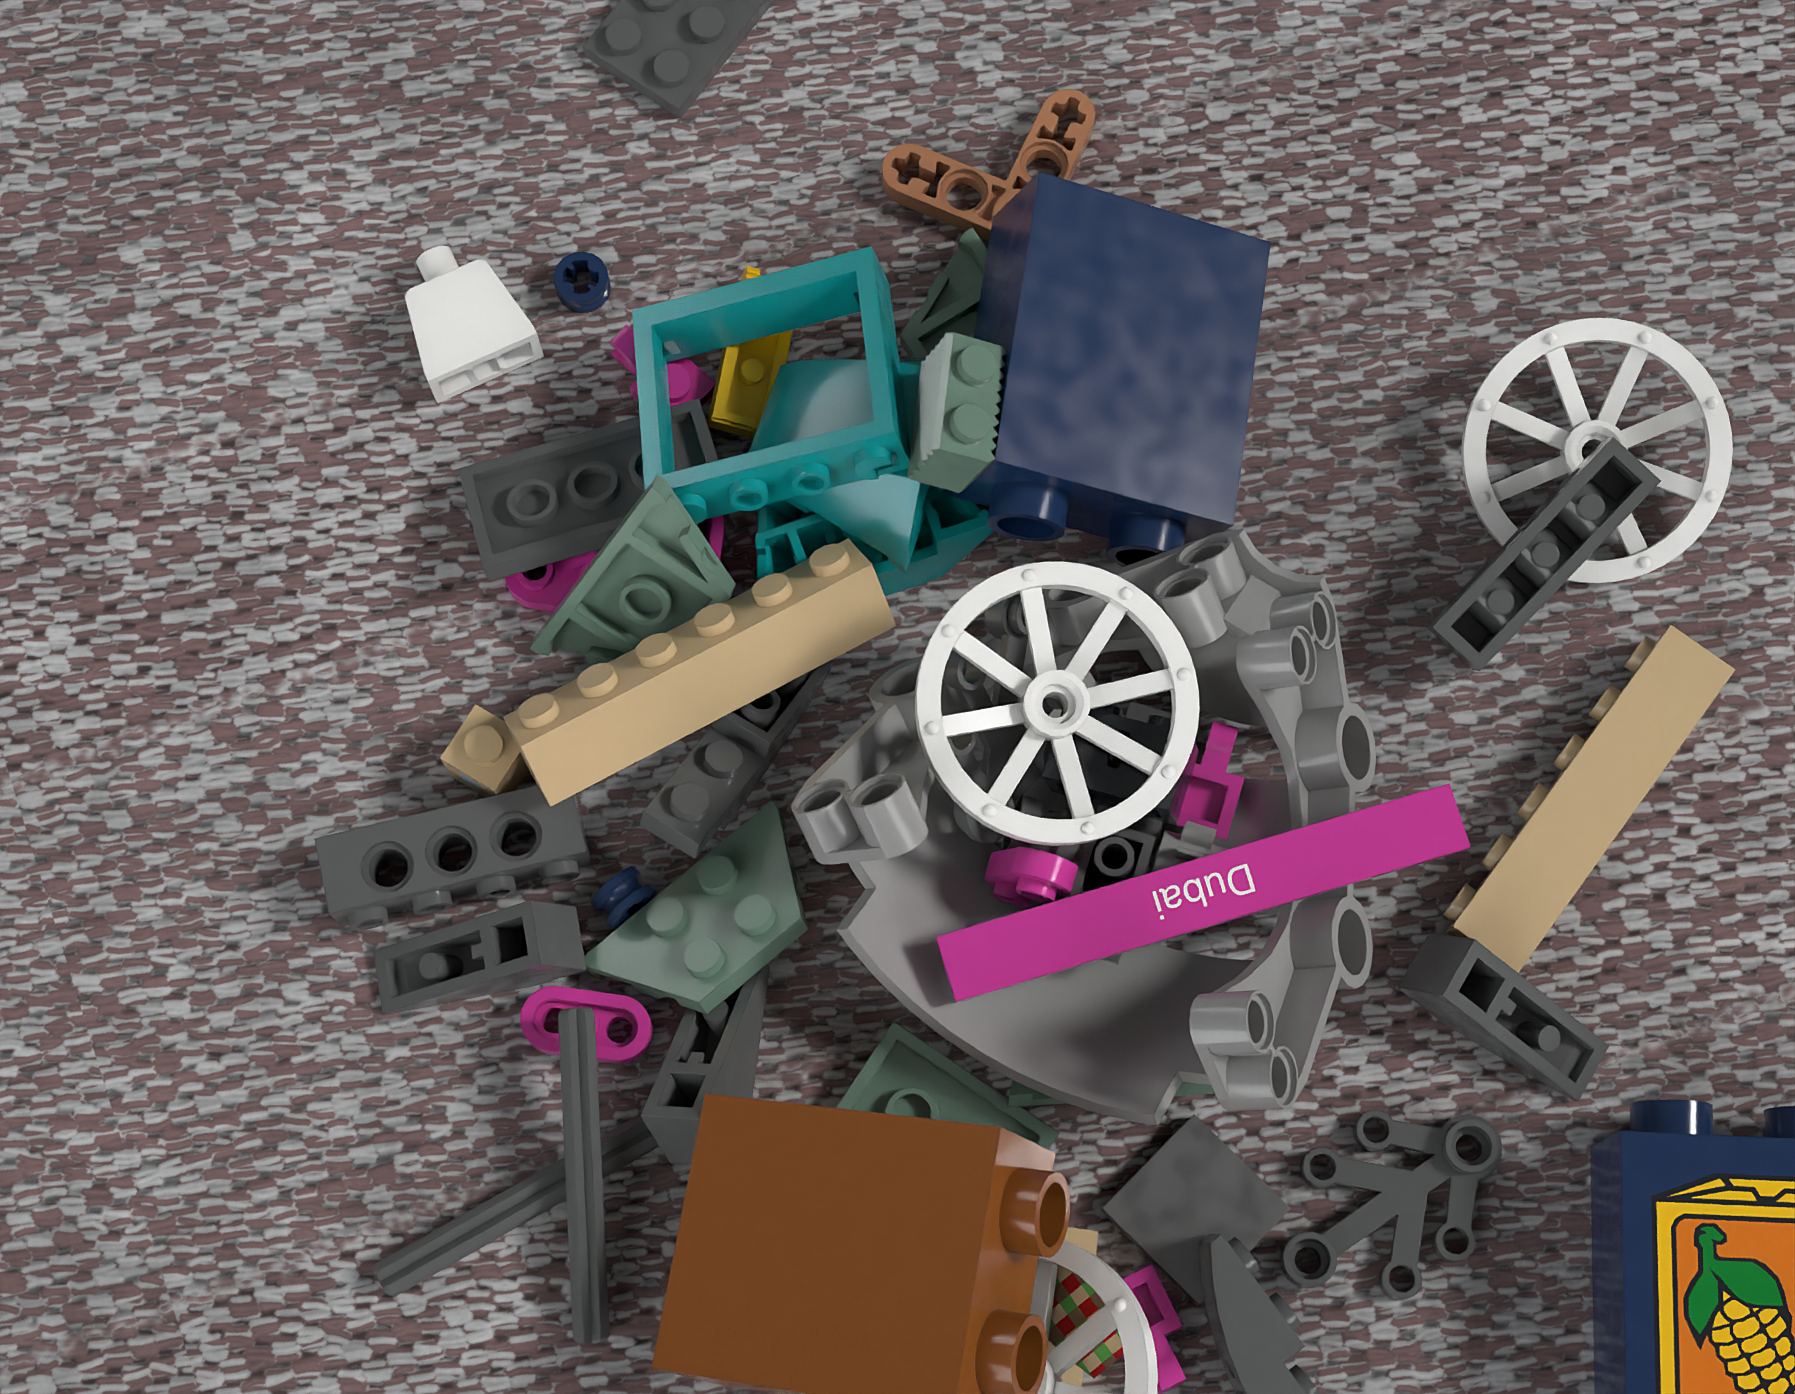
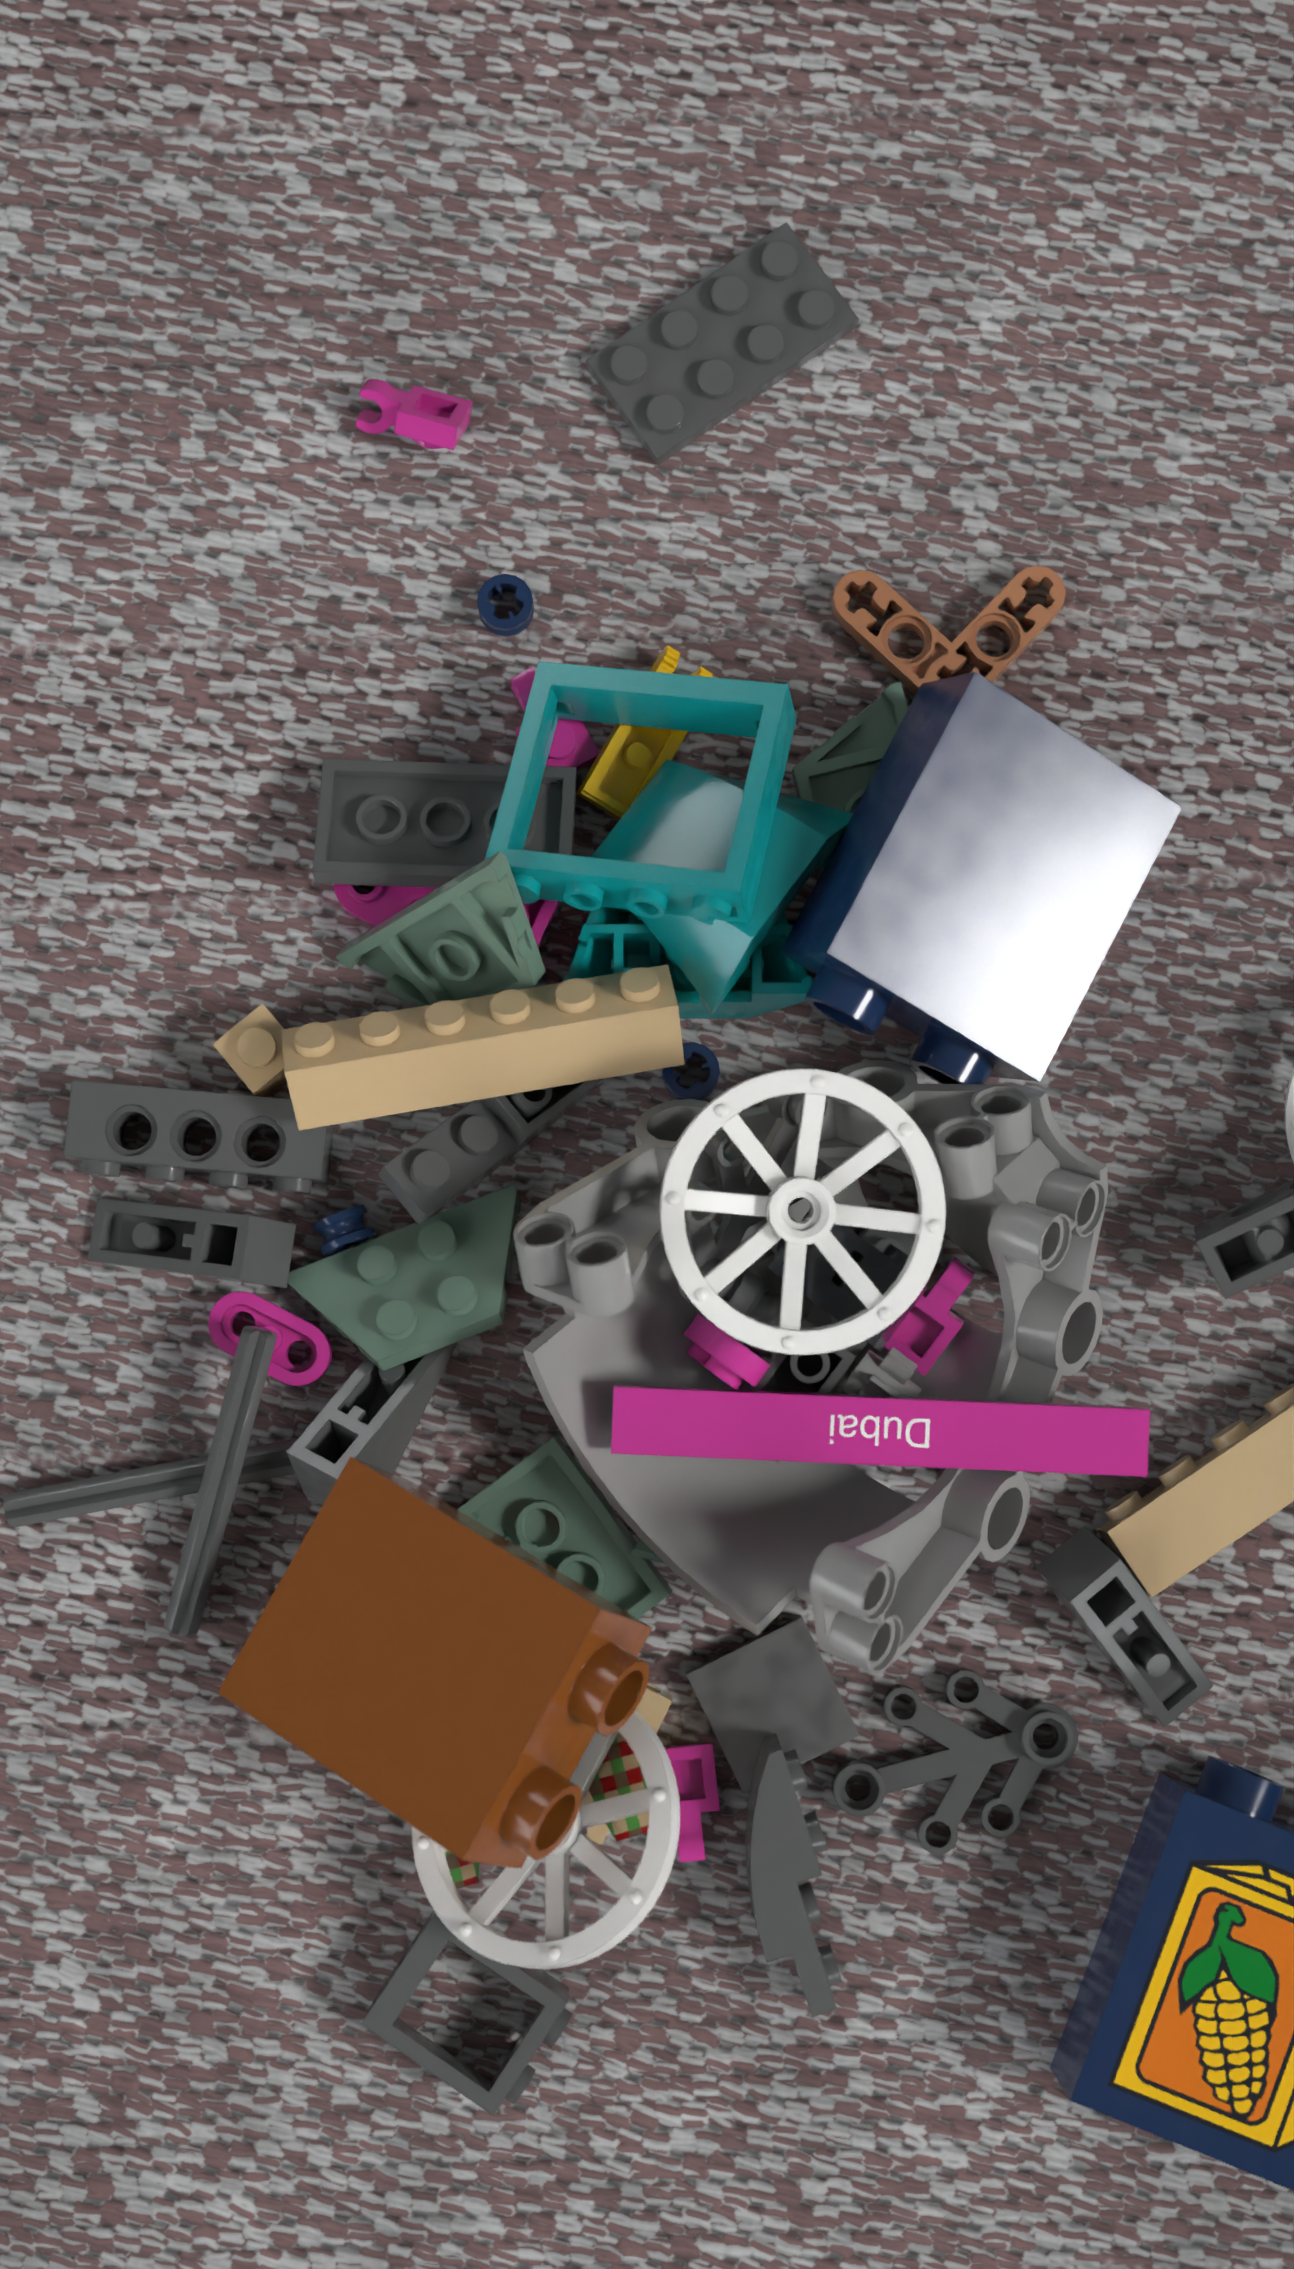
camera: 15 degrees right, 10 degrees up
(448, 139) = (422, 414): none -> dark pink plate
(466, 324) = (377, 612): white torso -> none
(908, 621) = (698, 1089): none -> dark blue bush
(956, 412) = (809, 886): sand green brick -> none

